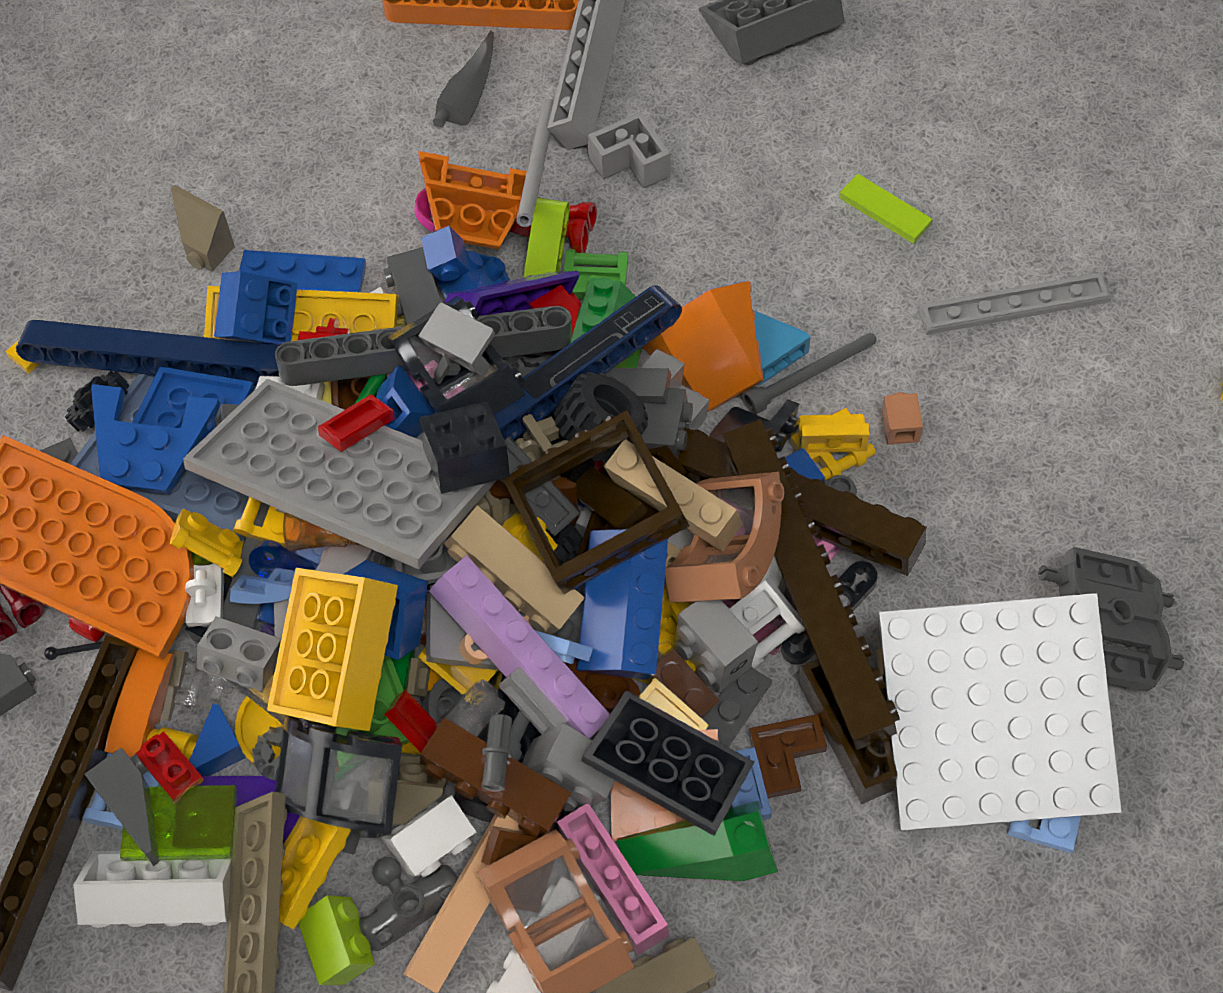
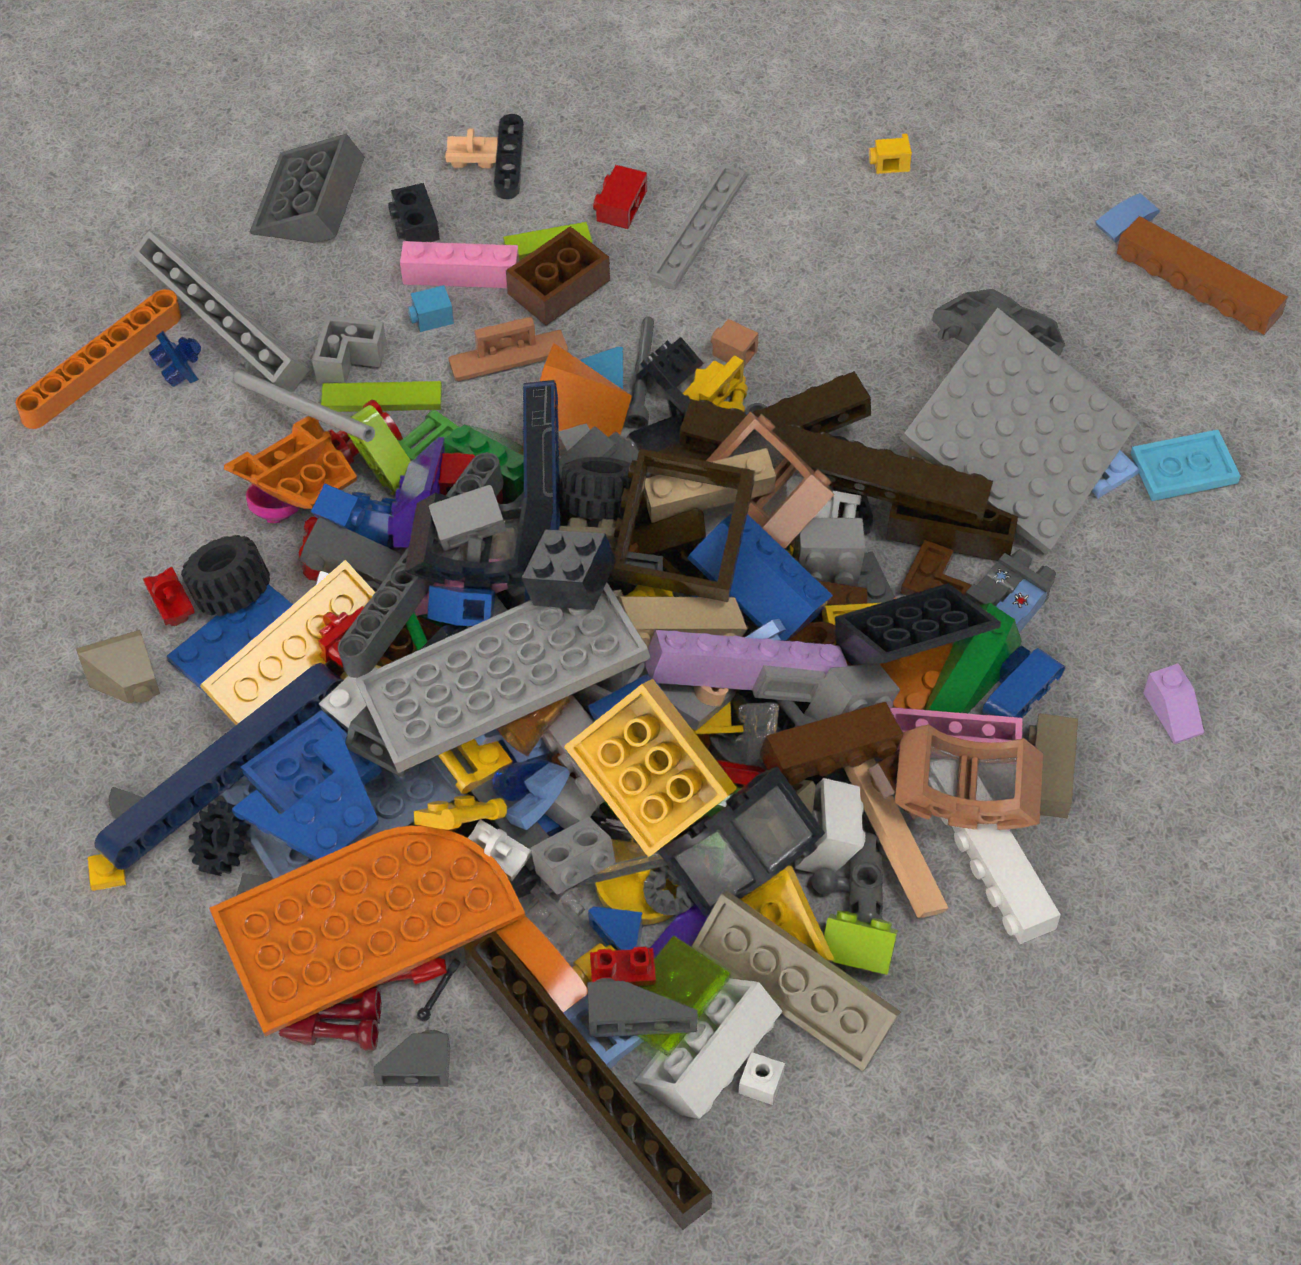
camera: 55 degrees left, 5 degrees down
(93, 316) = (121, 801): none -> dark grey tile
(160, 958) = (759, 1087): none -> white plate
(255, 308) = (262, 661): blue slope -> none
(293, 211) = (169, 597): none -> red hips
(336, 231) = (225, 575): none -> black tyre
(356, 423) = (467, 635): red tile -> none
(465, 88) = (168, 420): dark grey piece -> none
(497, 753) = (824, 718): dark grey axle -> none
(525, 54) = (179, 354): none -> clear blue hips
(615, 210) = (389, 395): none -> lime tile
(723, 905) = (1024, 686): none -> blue beam
(730, 178) = (431, 308): none -> dark azure brick
(738, 258) = (505, 348): none -> nougat bracket
(740, 882) = (1013, 662): none -> clear blue tile
(794, 165) = (456, 264): none -> bright pink brick
(817, 98) = (414, 214): none -> black brick
(821, 827) = (1014, 587): none -> dark grey hips
(830, 387) = (672, 365): none -> black bracket
(846, 238) = (558, 275): none -> reddish brown brick
(924, 86) = (471, 150): none -> light nougat hips
(948, 115) = (509, 156): none -> black beam
(983, 224) = (620, 196): none -> red brick
(1116, 889) = (1185, 465): none -> medium azure plate

